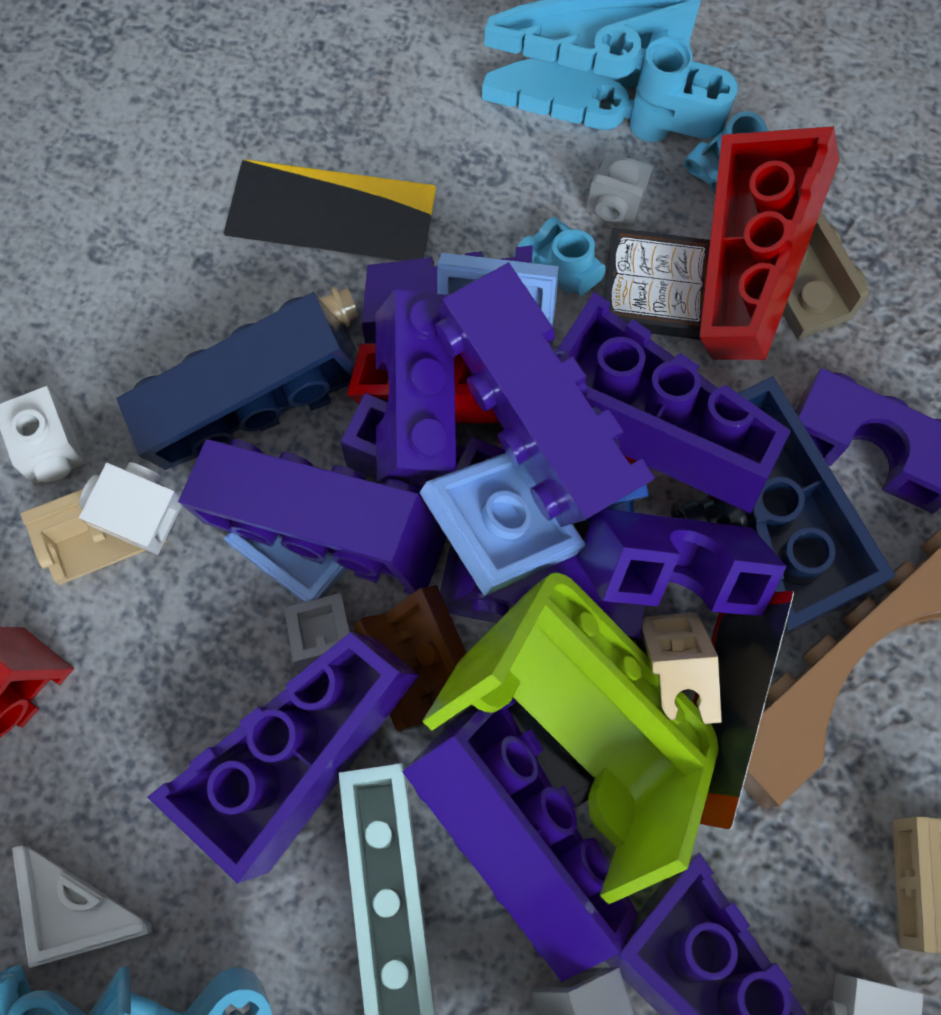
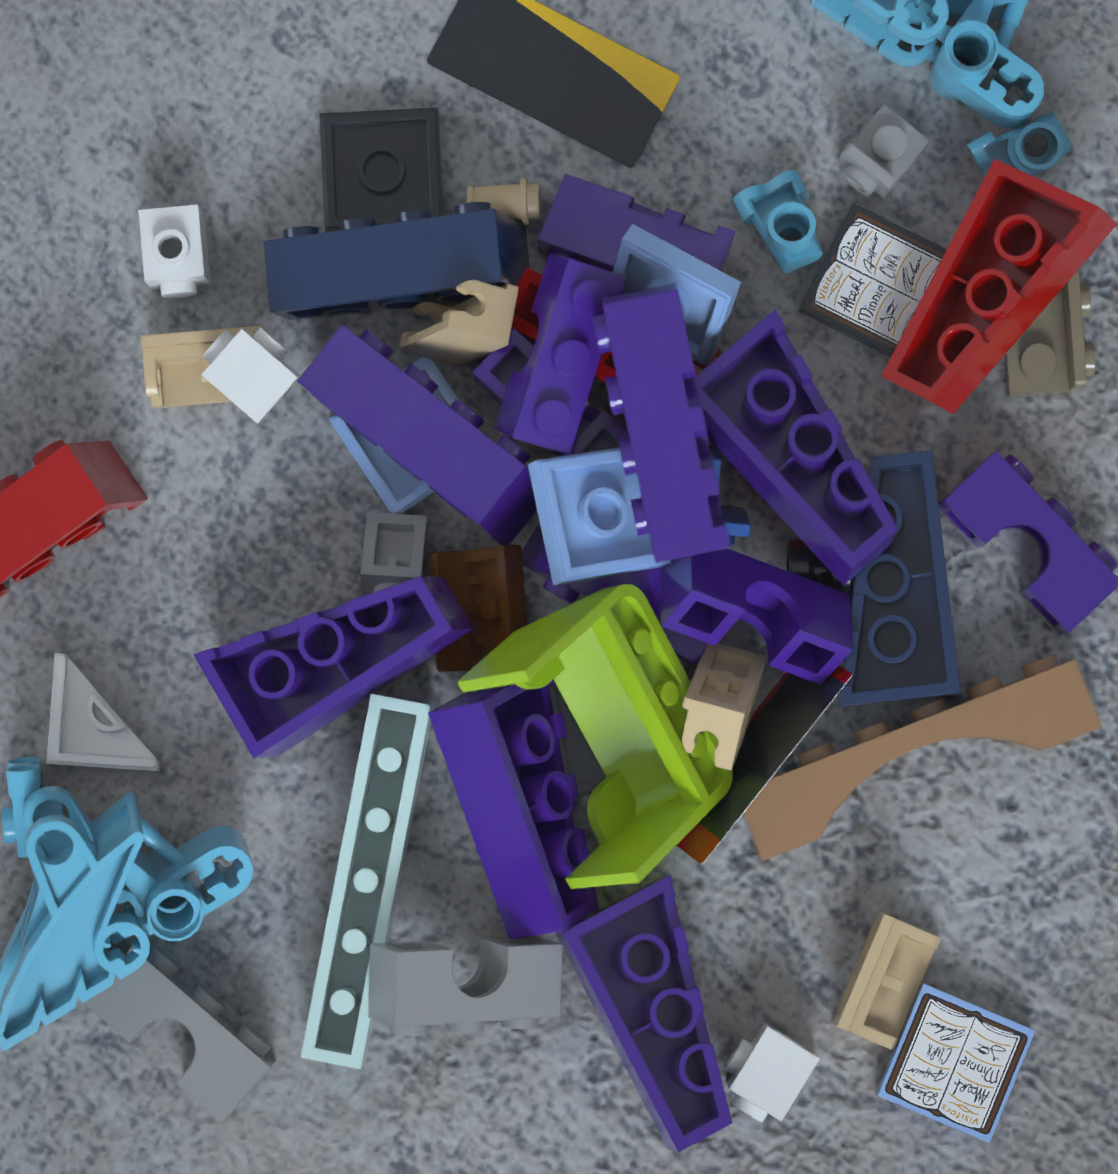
camera: 25 degrees right, 15 degrees up
(202, 310) = (380, 164): none -> black tile
(320, 407) = (467, 328): none -> tan hinge

